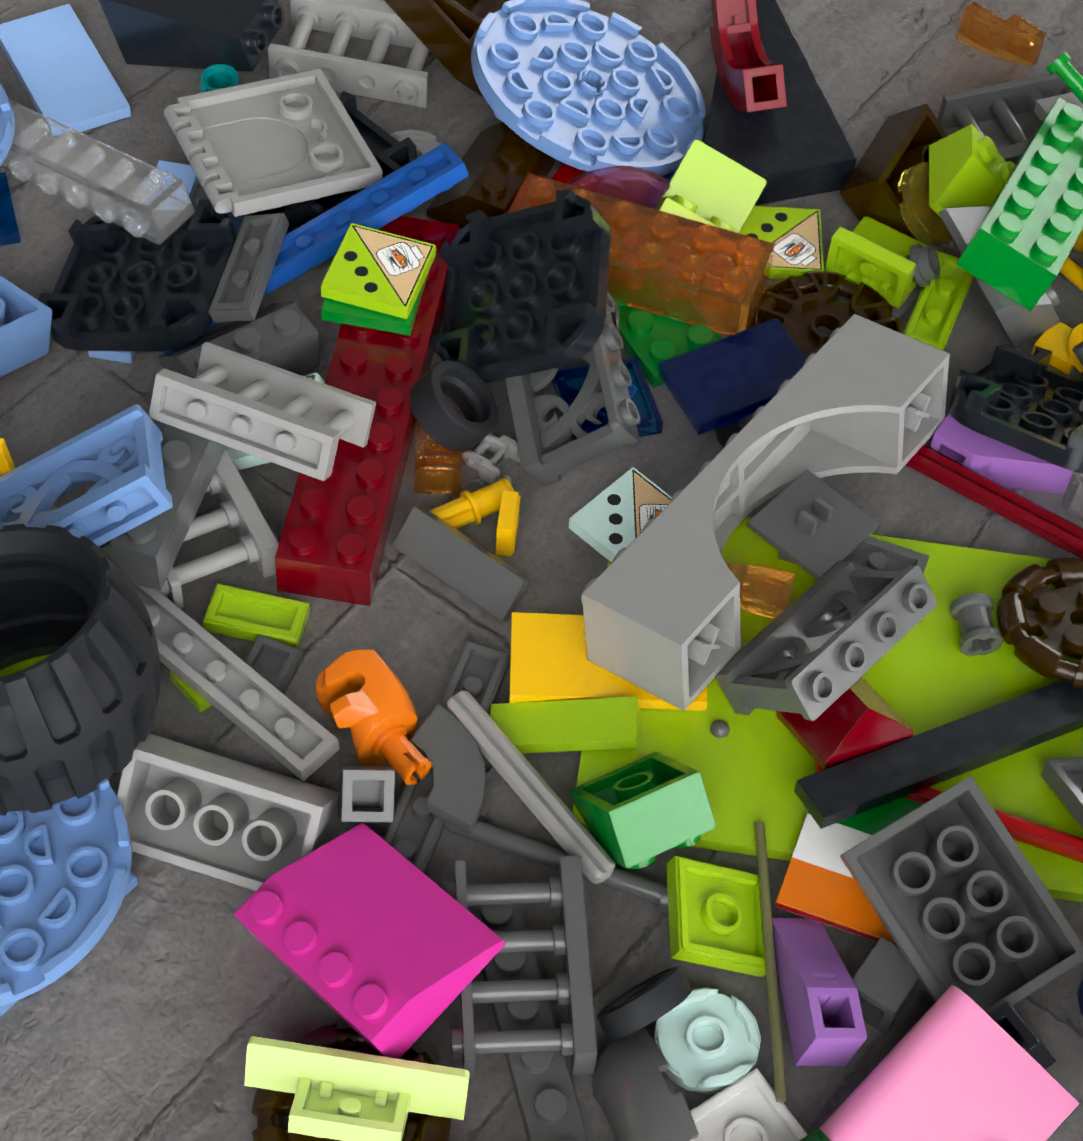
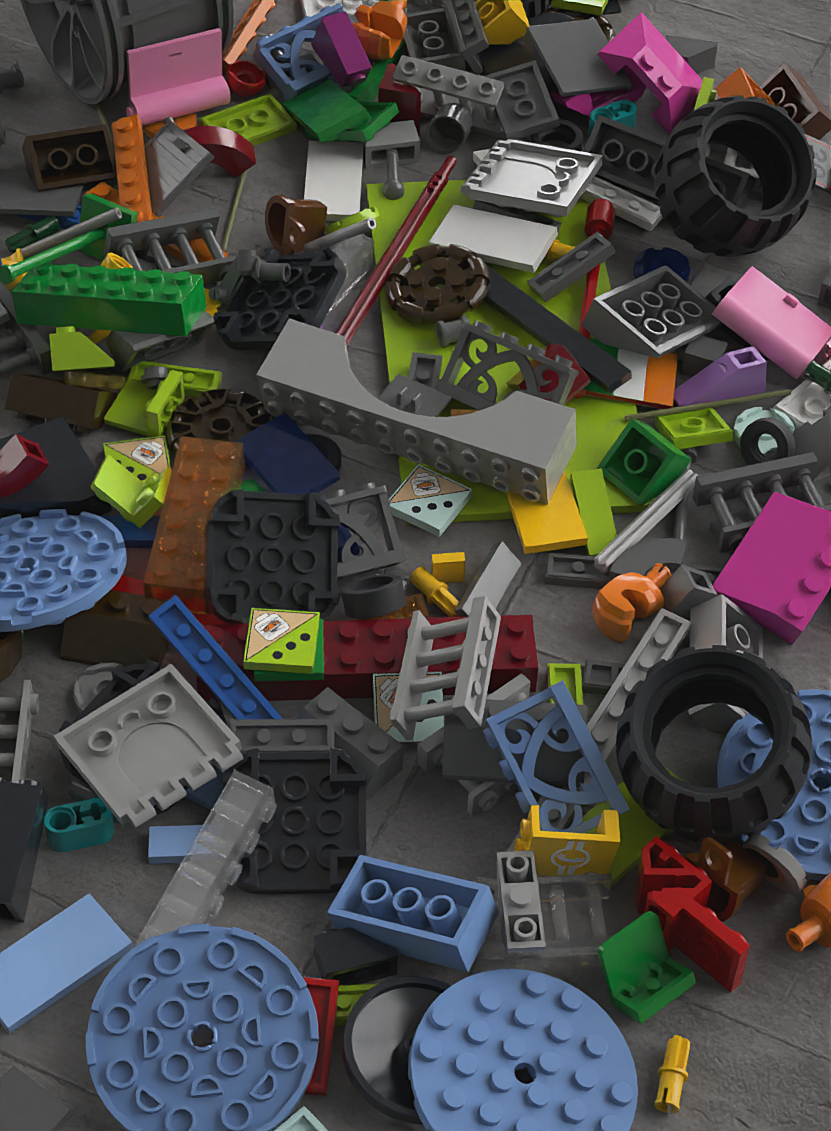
camera: 100 degrees left, 5 degrees down
(624, 183) = (134, 540): clear pink tile -> none

